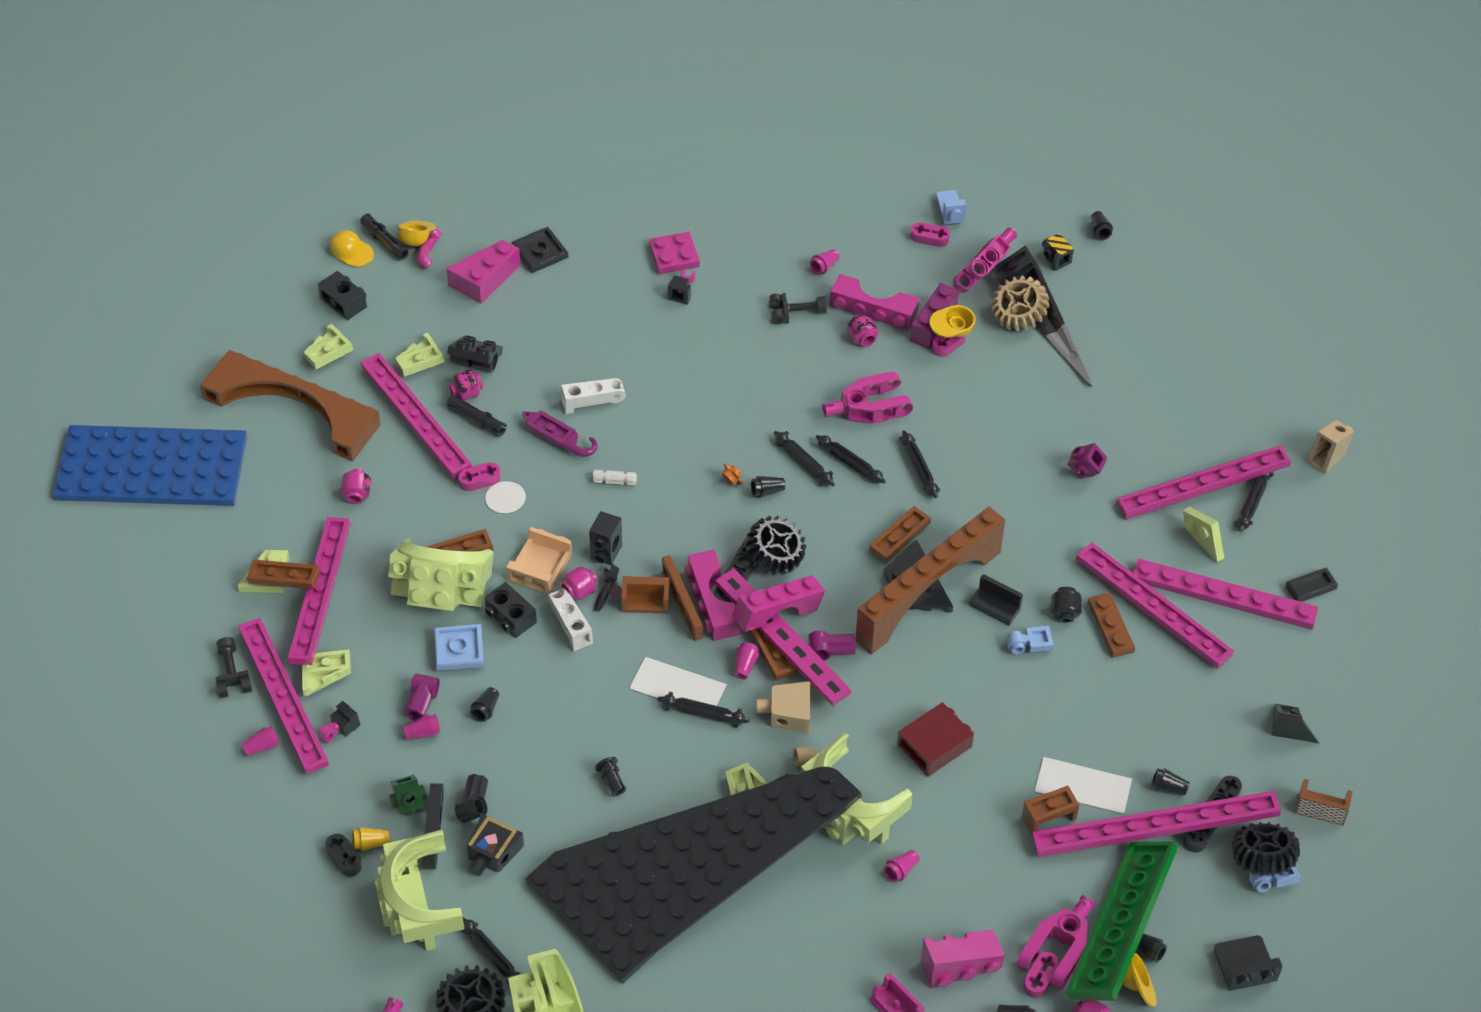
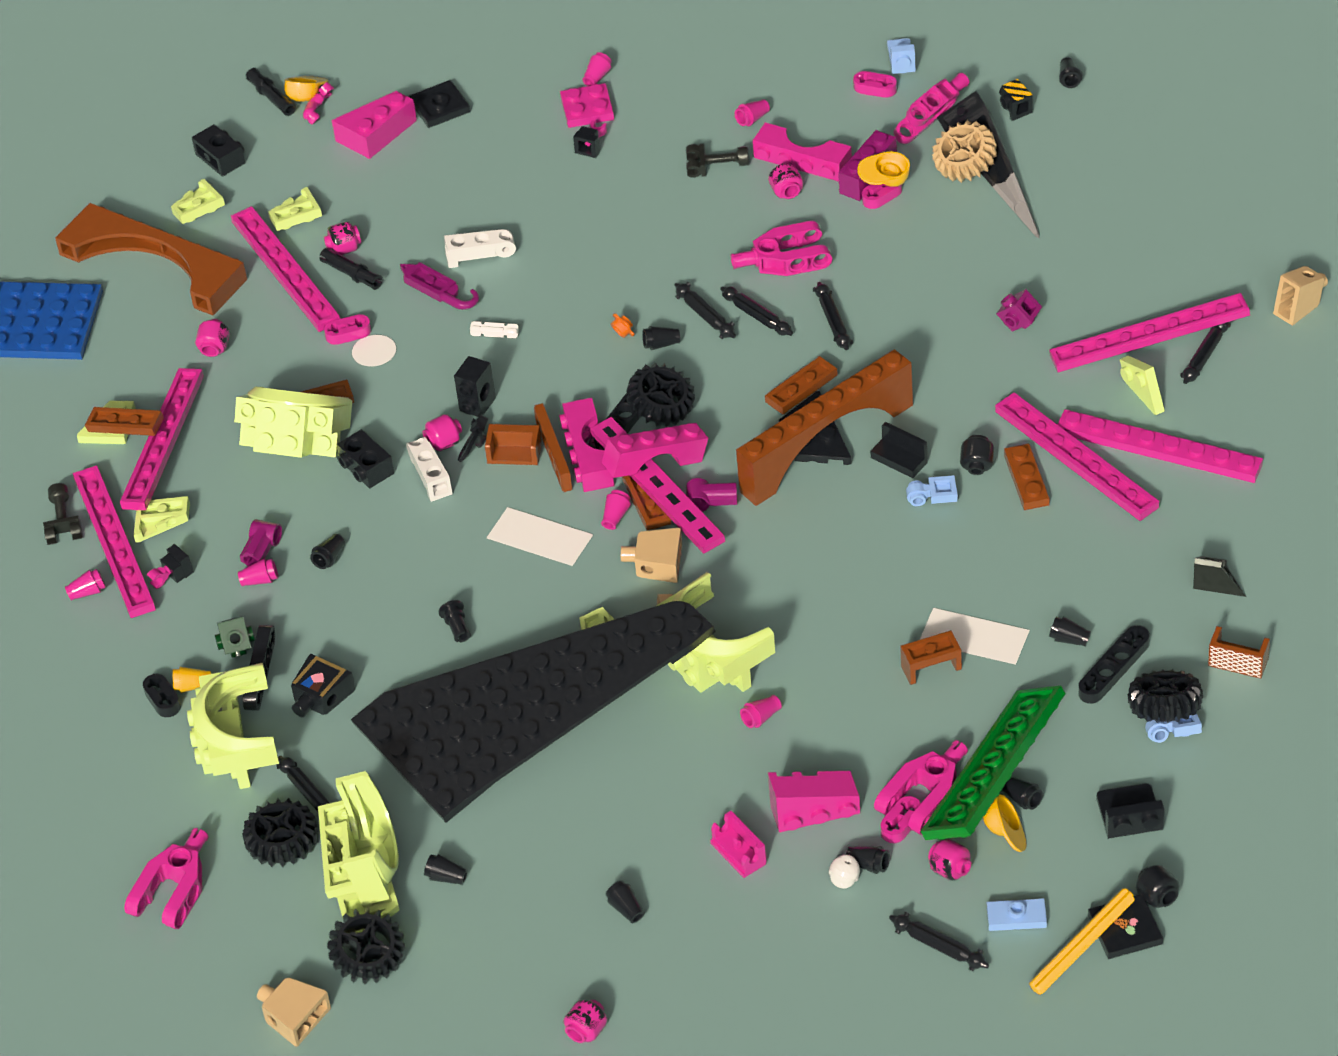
camera: 10 degrees right, 5 degrees down
(350, 249) = (232, 105): yellow cap -> none
(459, 647) = (306, 495): light blue plate -> none
(471, 351) = (355, 207): black plate -> none
(473, 800) = (303, 641): black piece -> none
(540, 561) = (403, 411): light nougat panel -> none
(680, 216) = (597, 68): none -> dark pink cone
(703, 709) = (563, 557): black wheel -> none
(935, 739) = (813, 587): dark red brick -> none
(1156, 823) = (1047, 670): dark pink plate -> none
(1311, 585) = (1259, 437): black tile -> none

